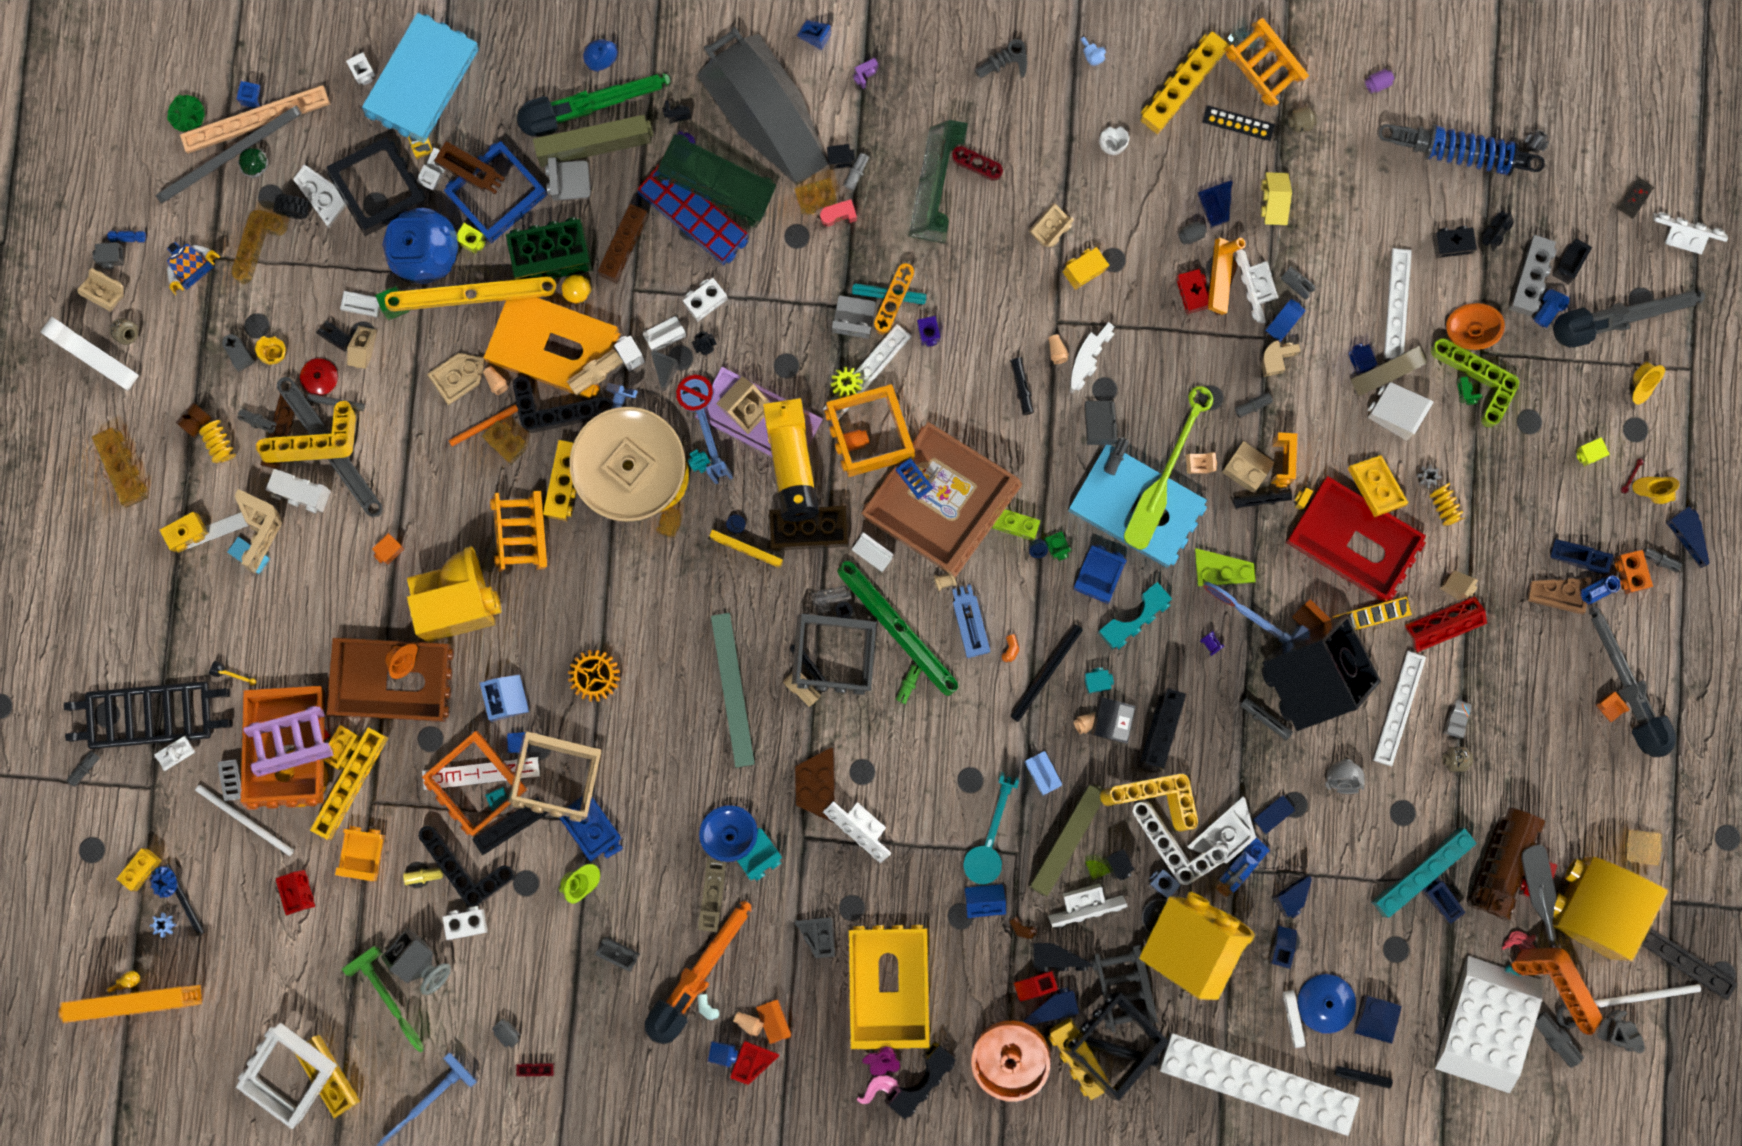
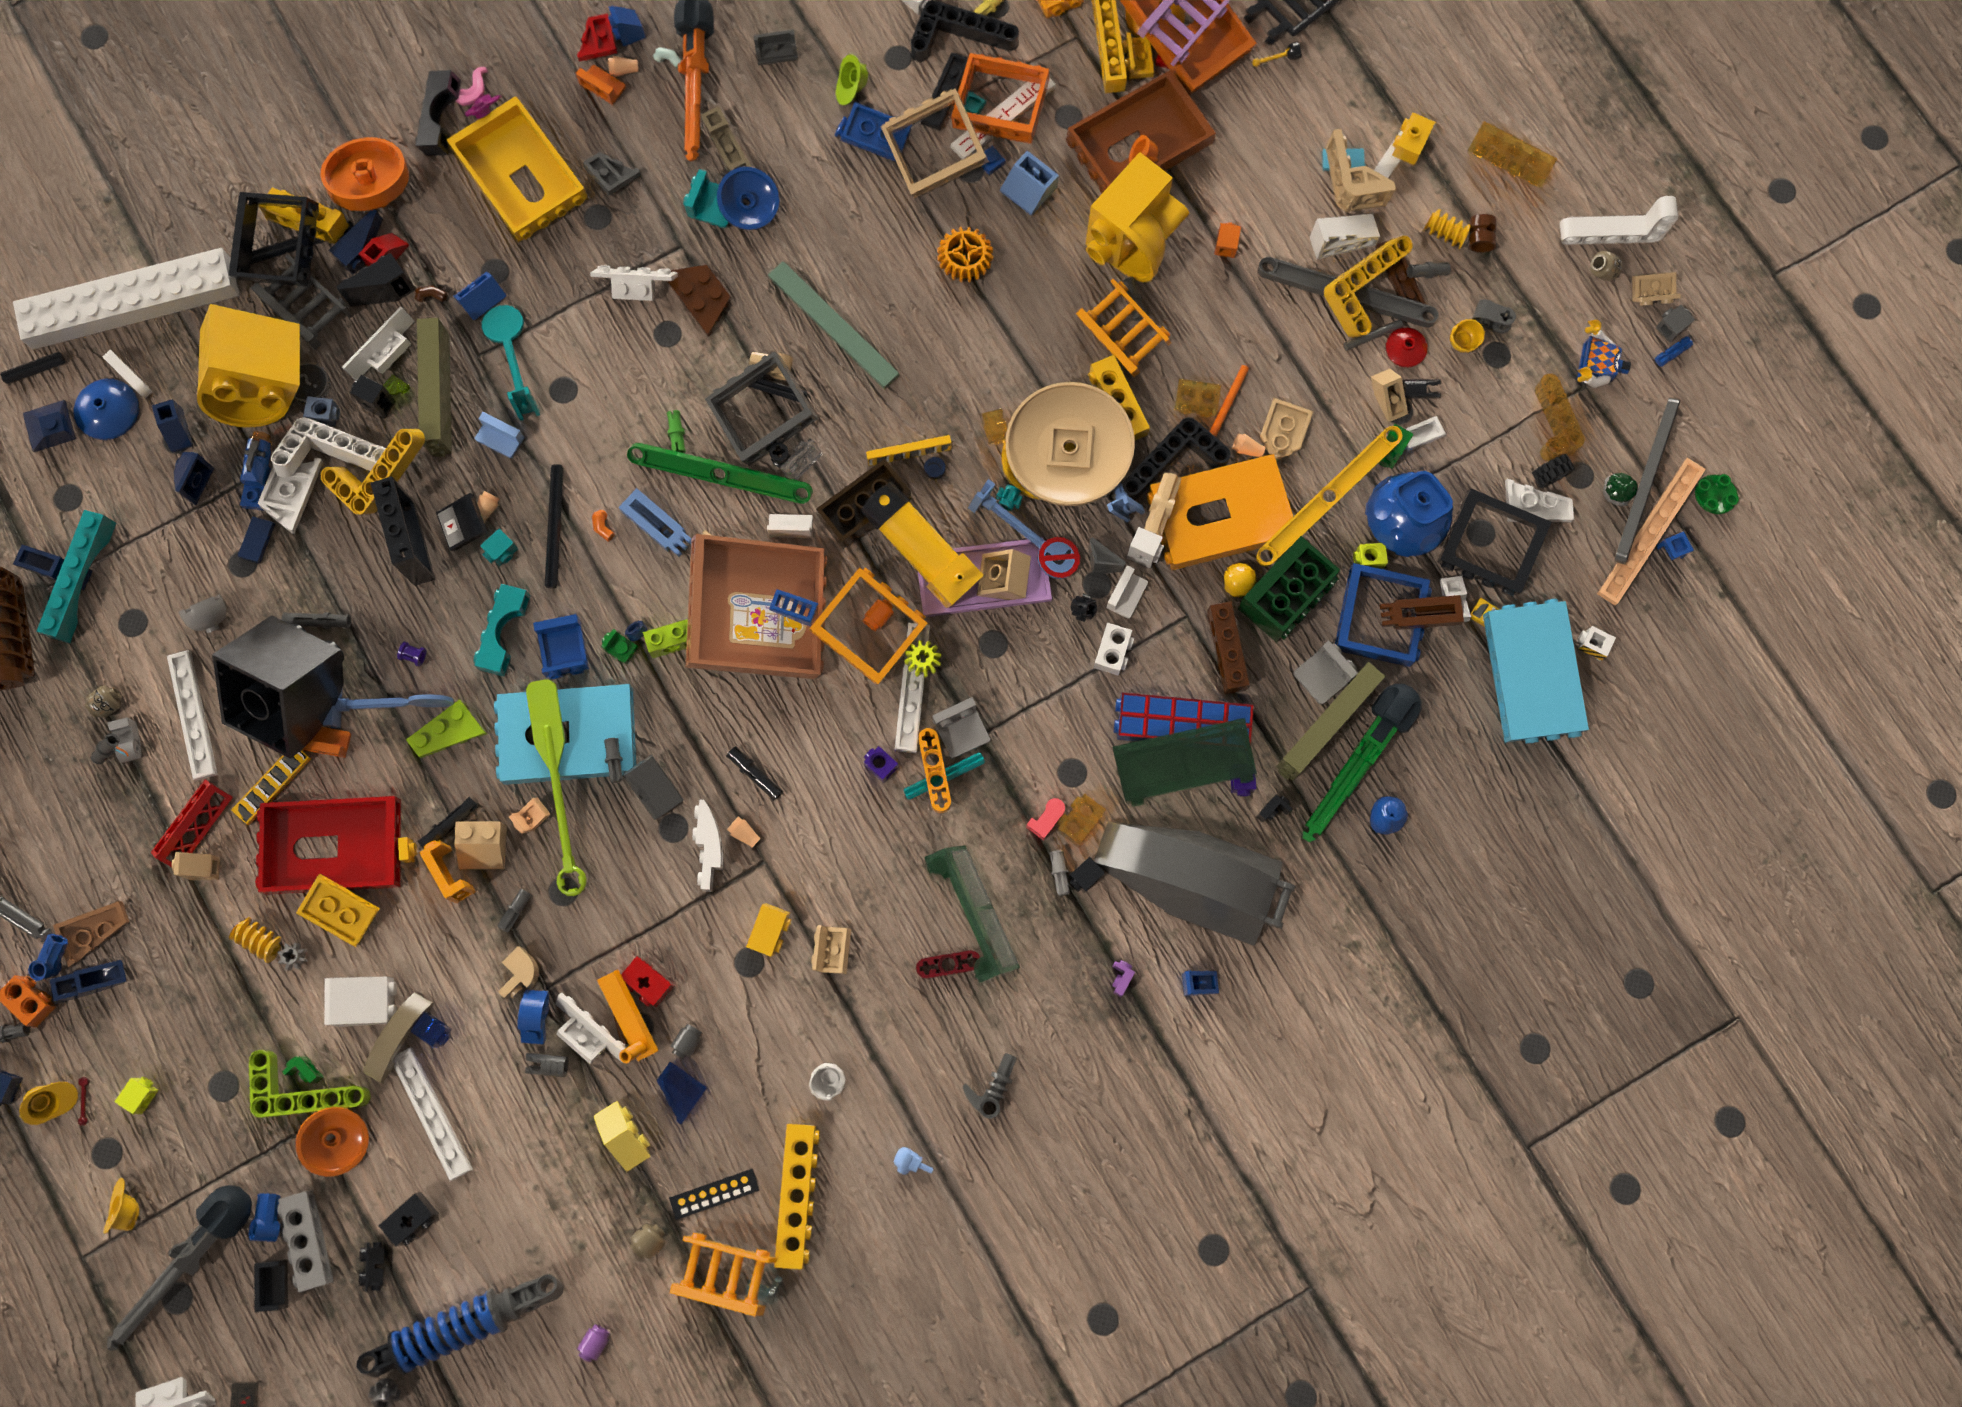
camera: 145 degrees right, 5 degrees down
(1476, 718) = (105, 748): none -> dark grey pin

